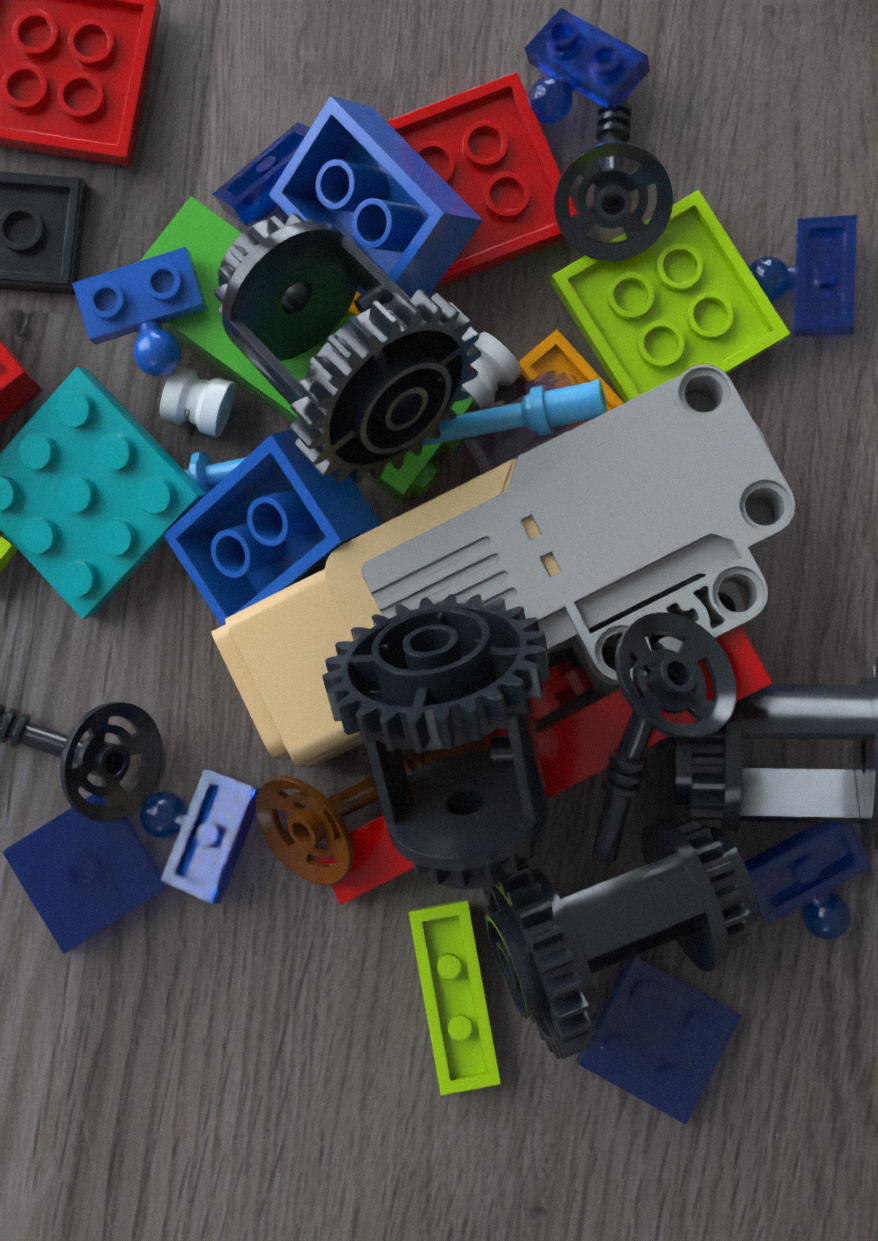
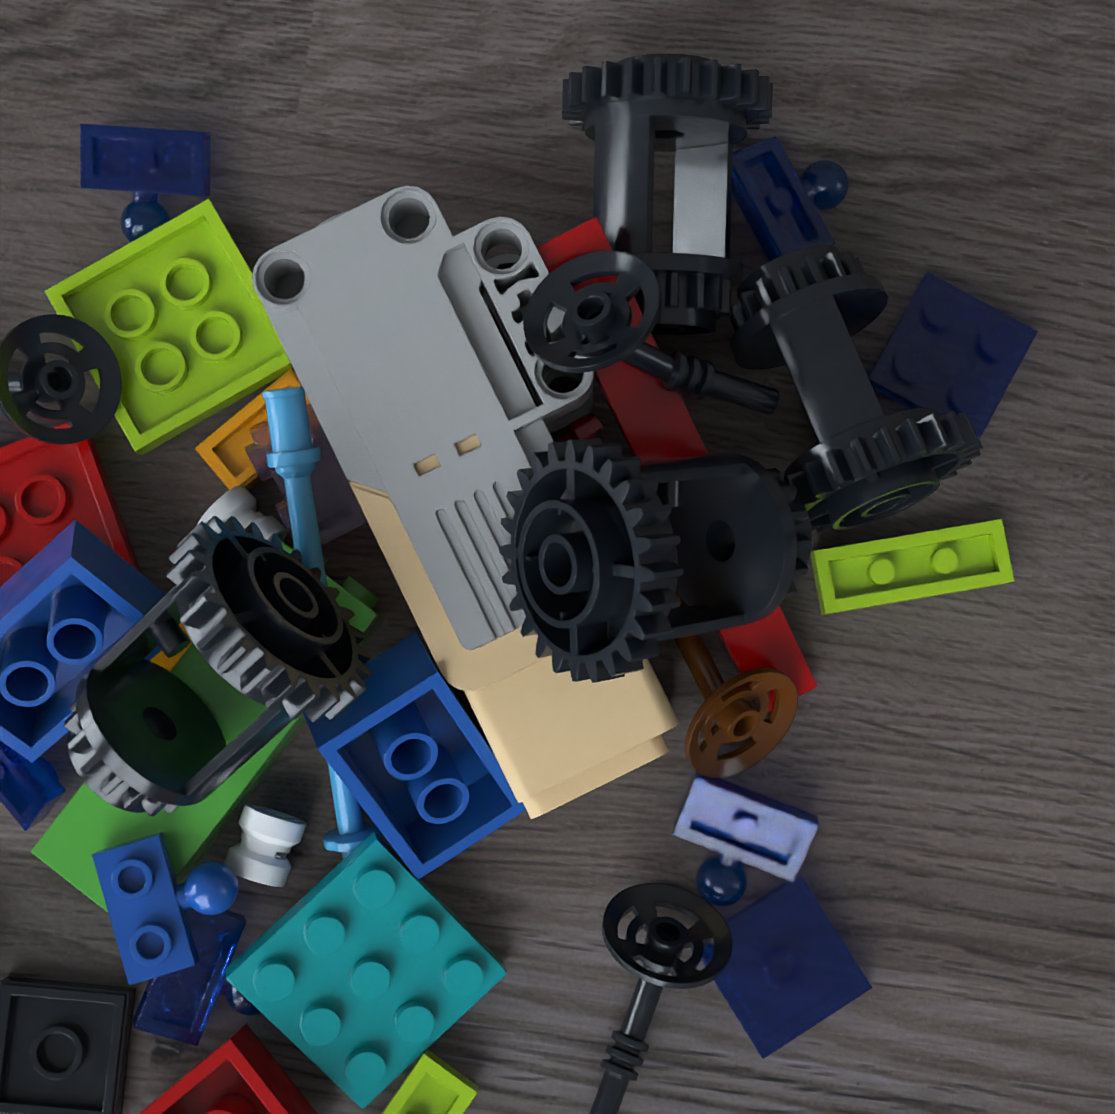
camera: 85 degrees left, 0 degrees up
(60, 333) = (182, 1001): none -> clear blue plate

